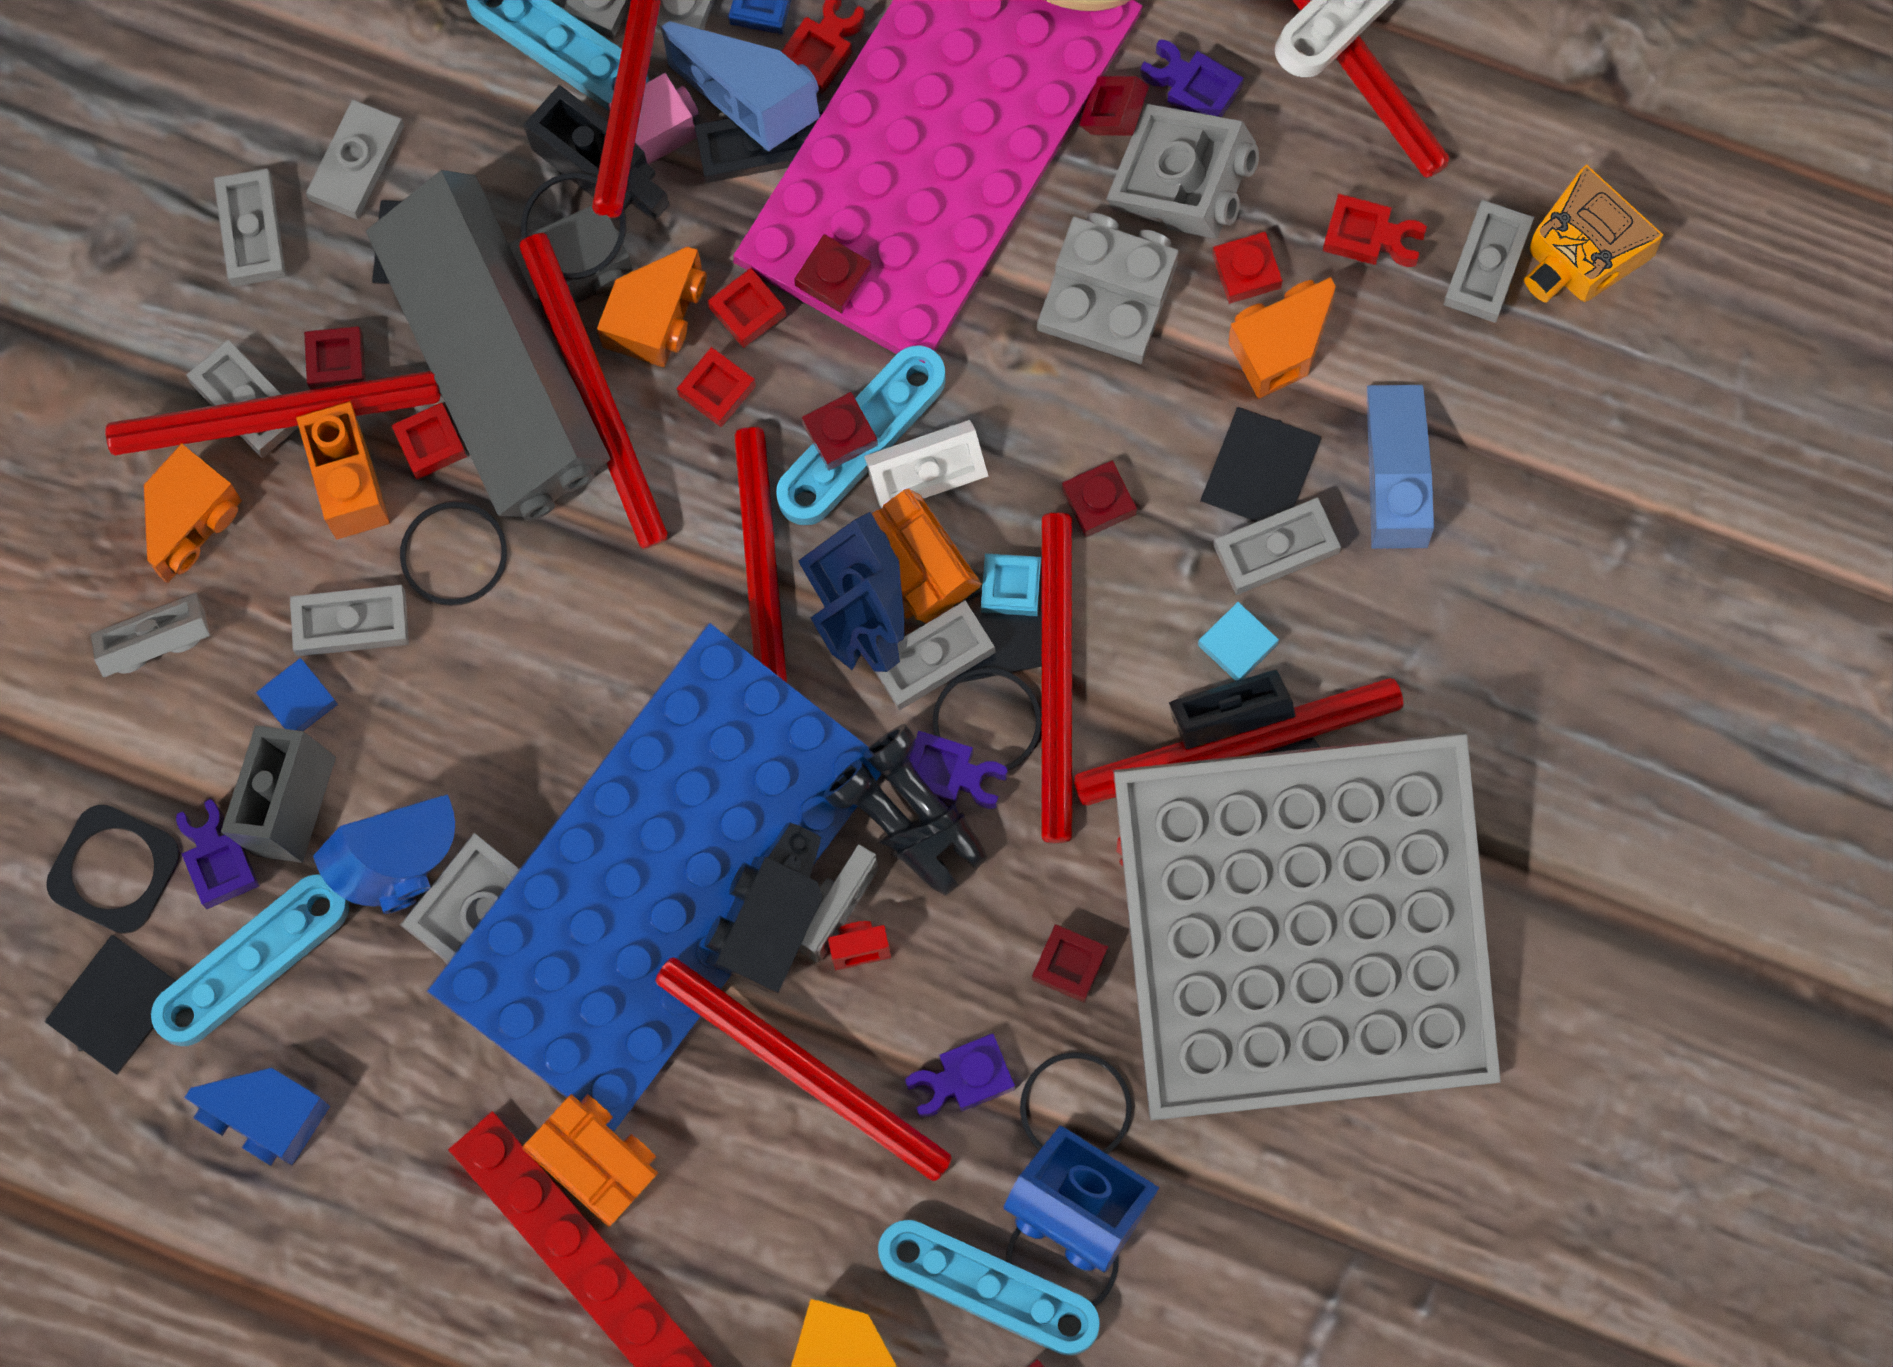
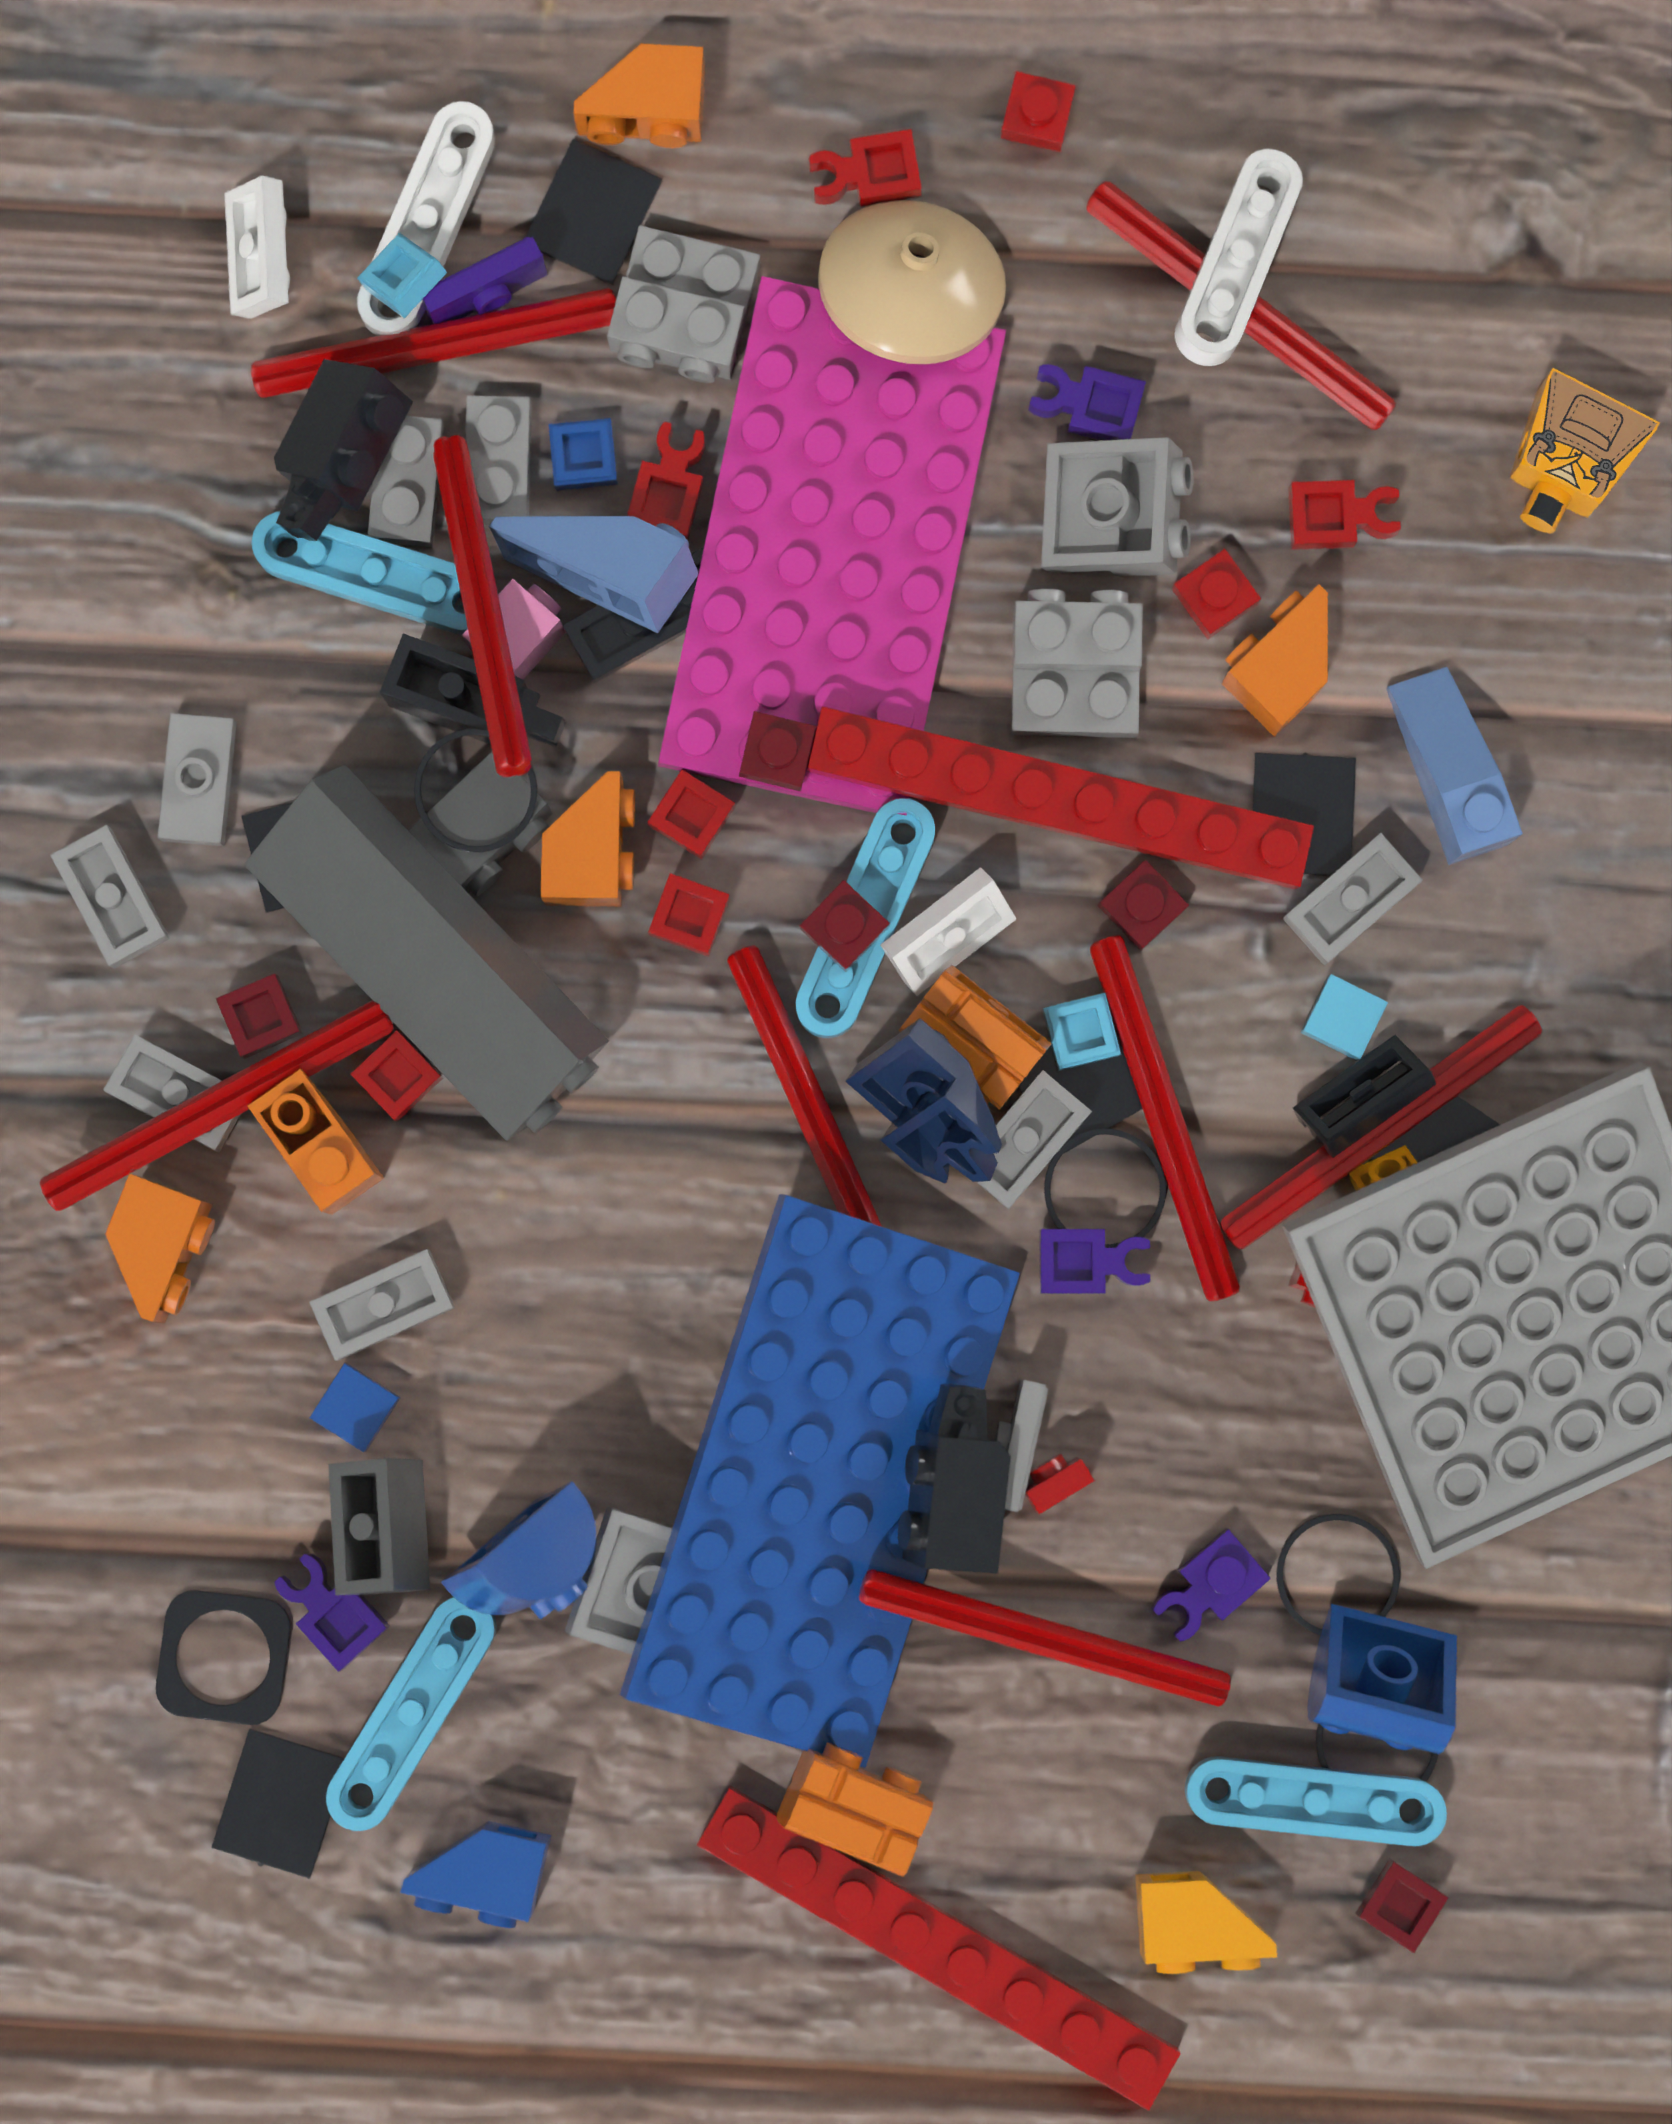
camera: 25 degrees left, 10 degrees up
(151, 634) = (170, 1393): light grey plate -> none
(453, 505) = (408, 1189): black piece -> none
(593, 389) = (559, 964): red axle -> none
(913, 841) = (1081, 1349): black piece -> none
(1057, 387) = (1059, 798): none -> red plate
(1069, 963) = (1284, 1427): dark red plate -> none
(1114, 106) = (1014, 457): dark red plate -> none
(1488, 261) = (1475, 506): light grey plate -> none

